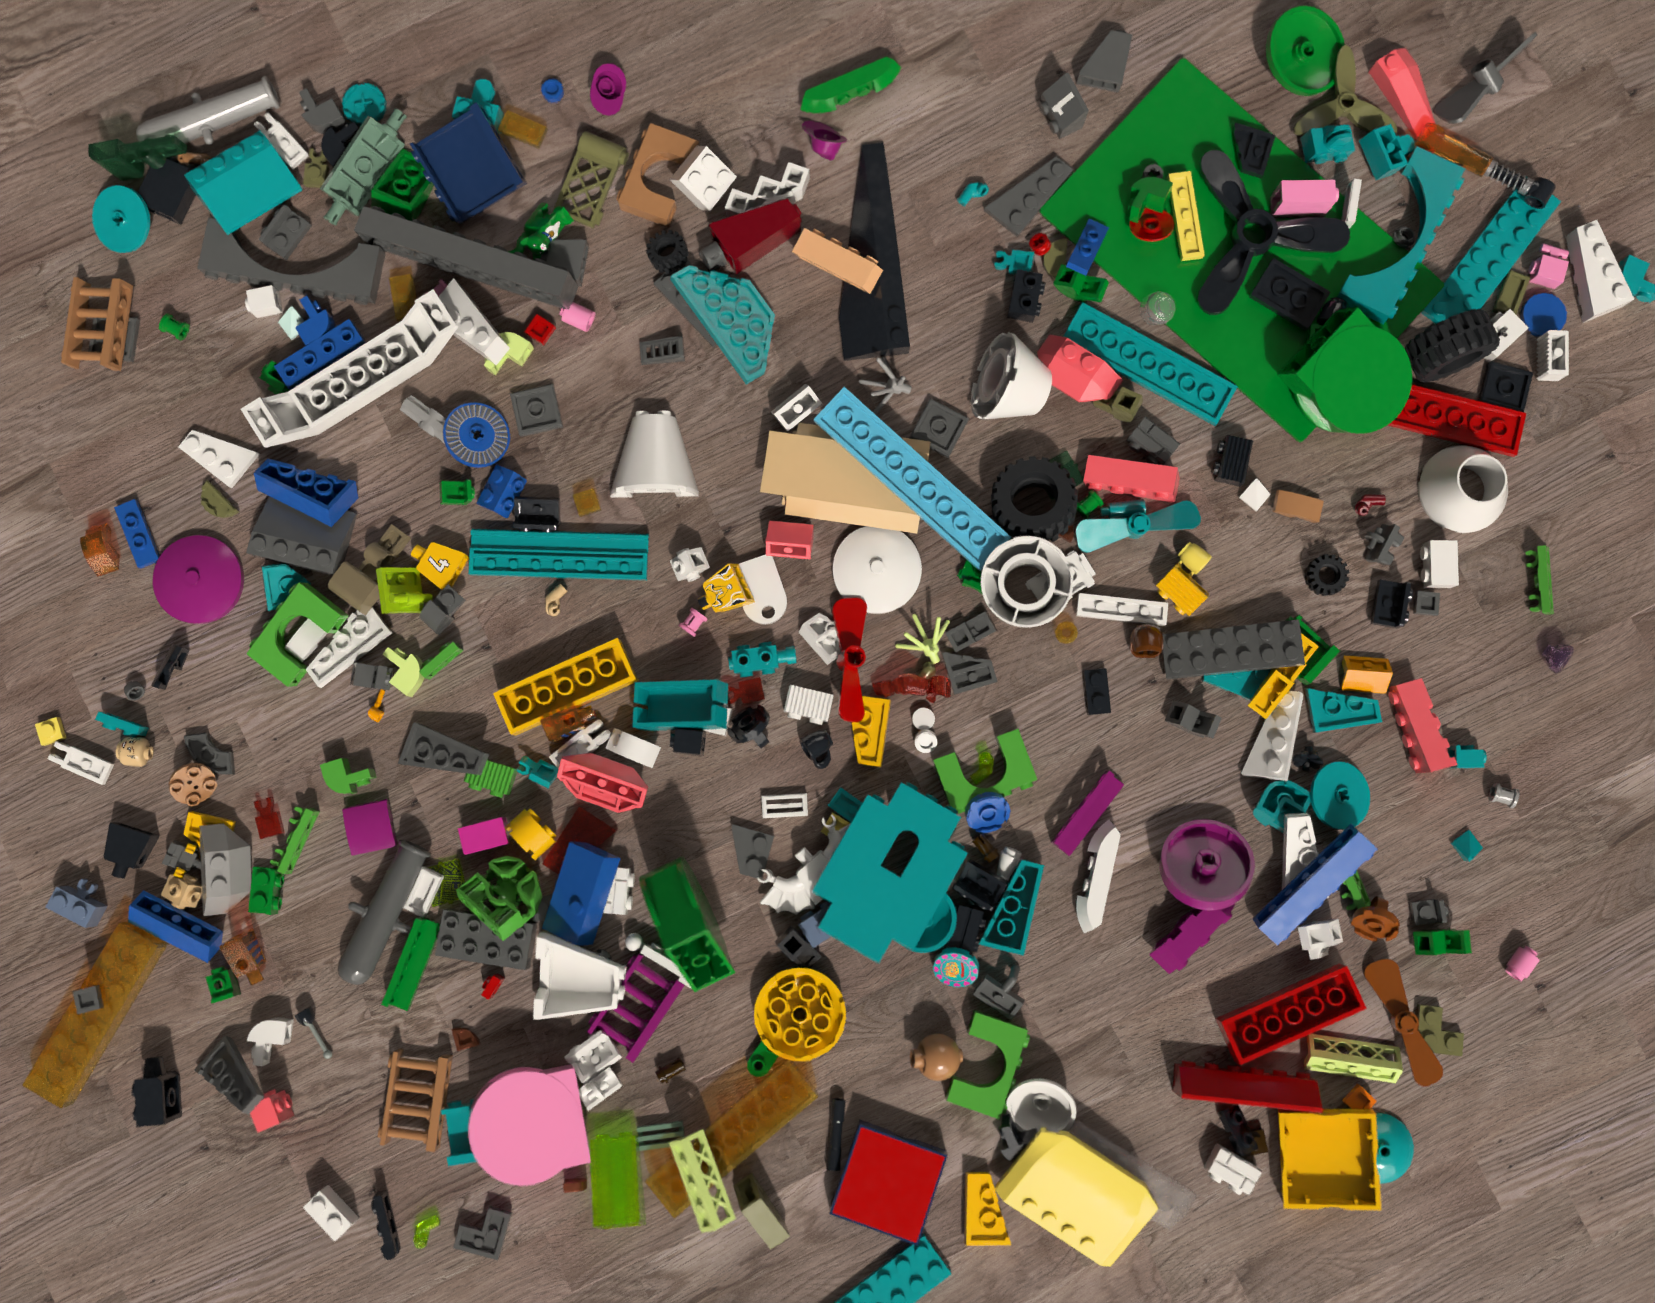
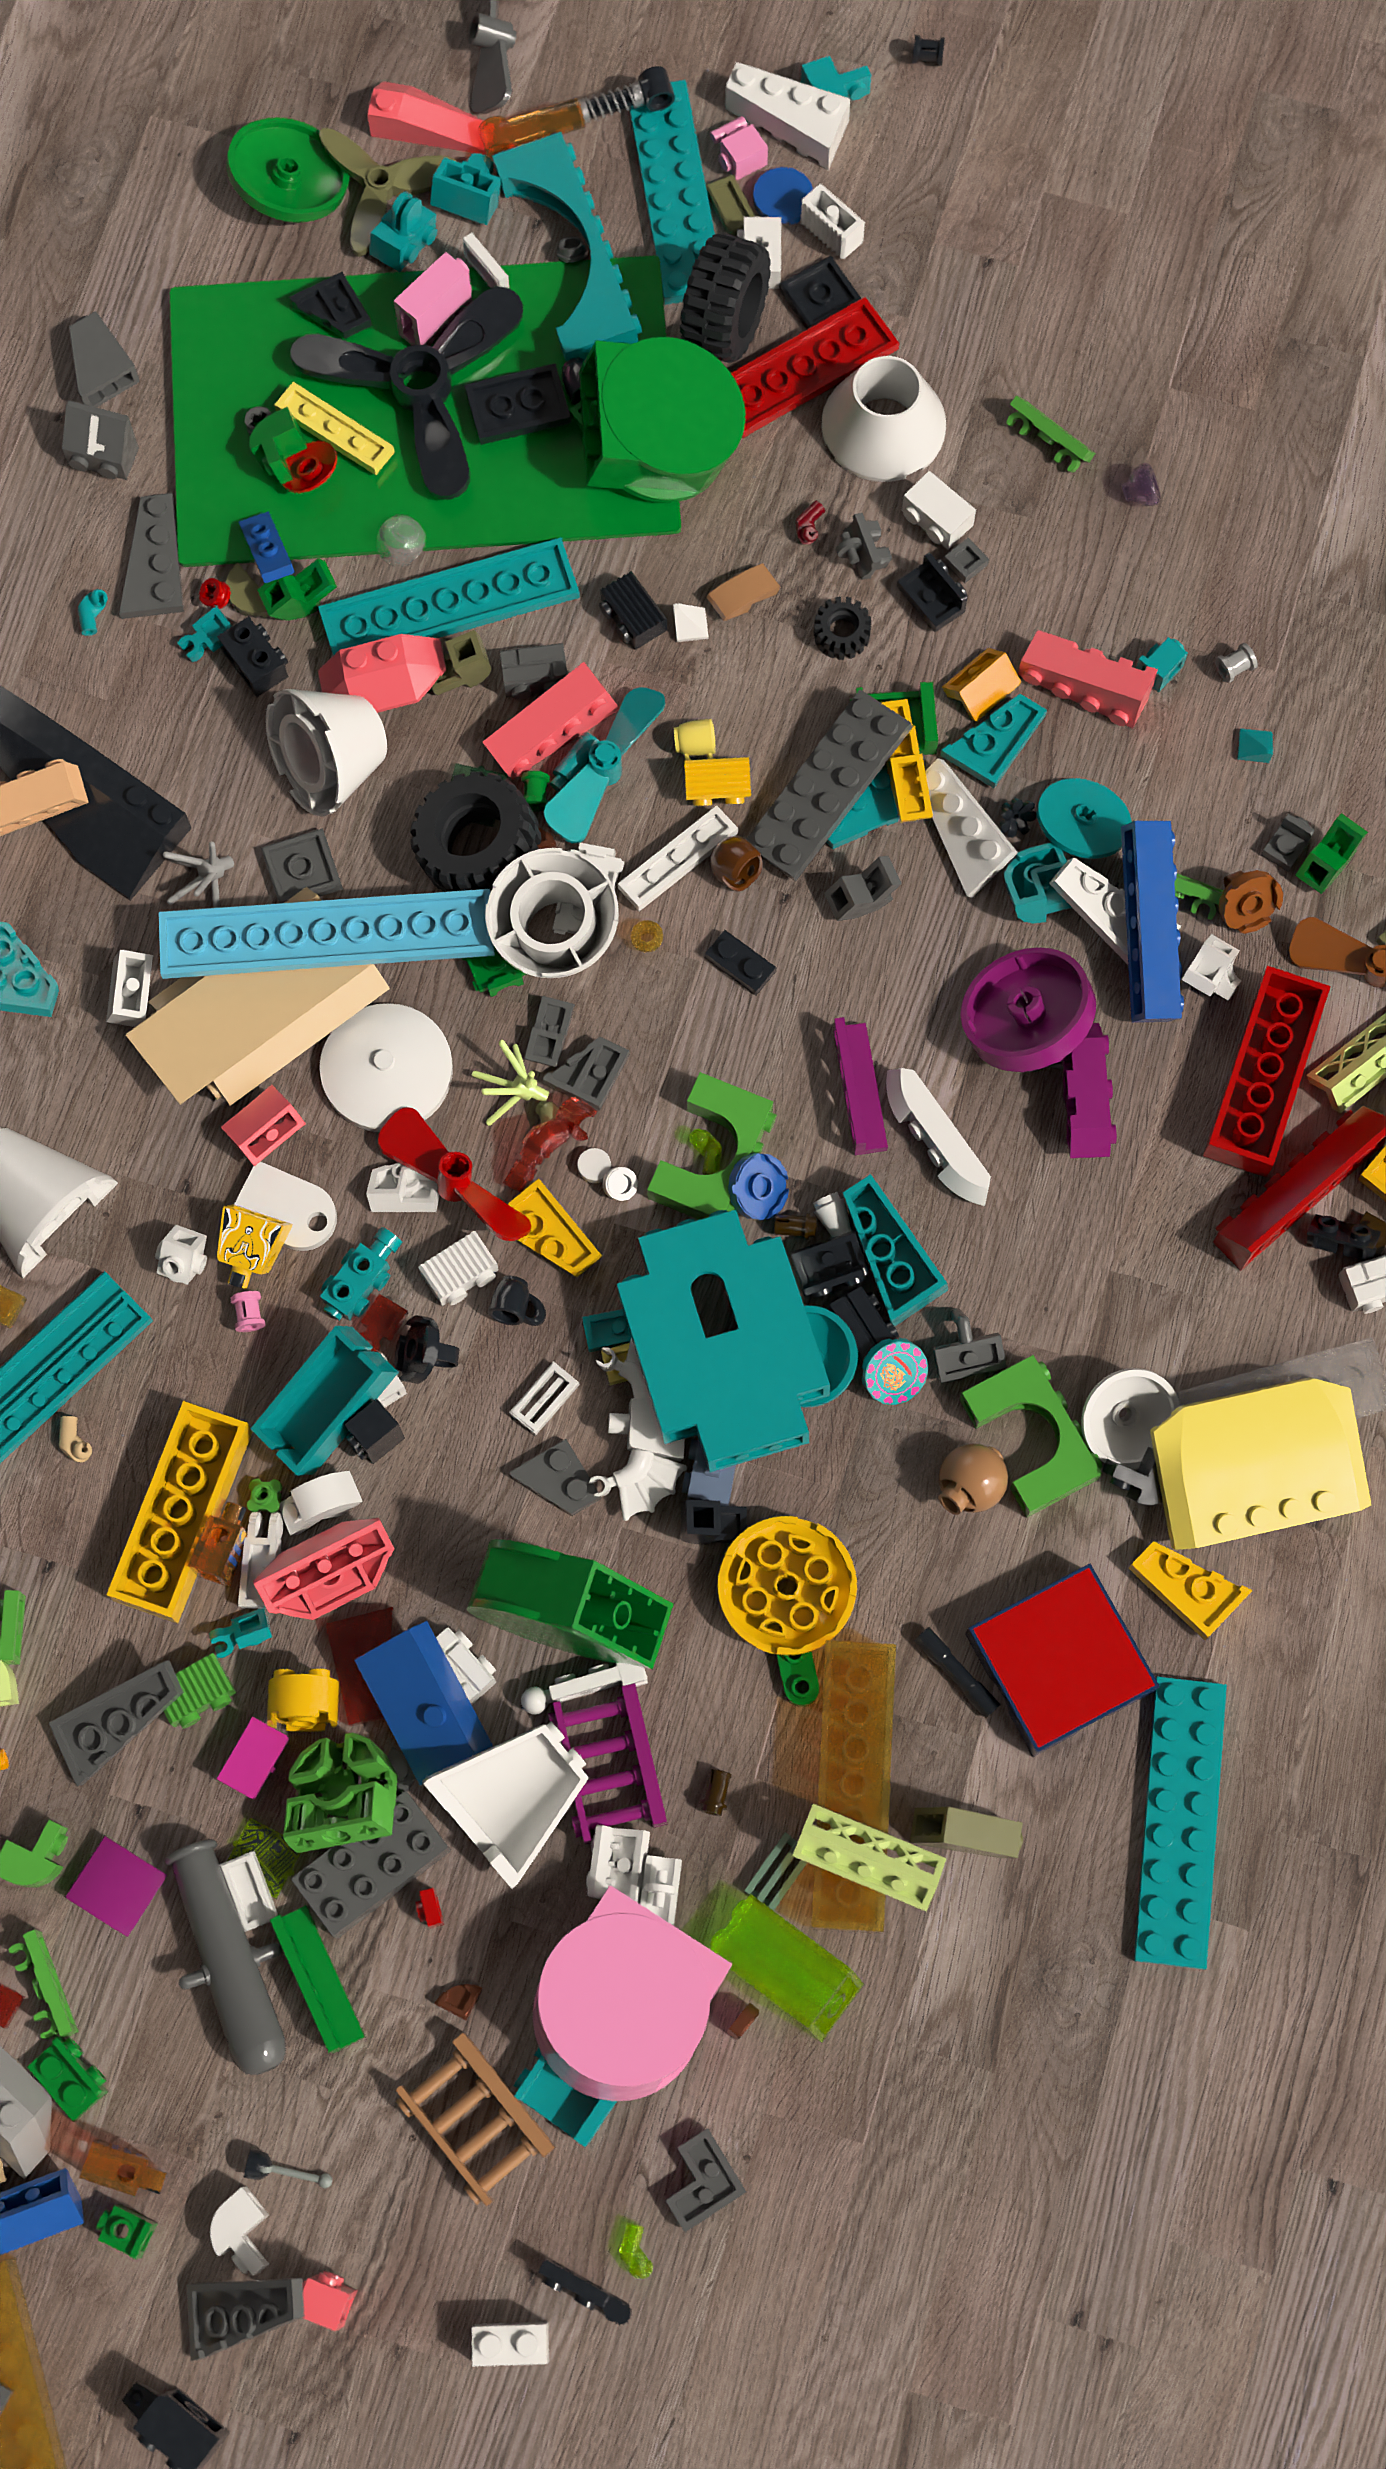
camera: 50 degrees left, 10 degrees down
(616, 722) = (271, 1502): none -> bright green plate

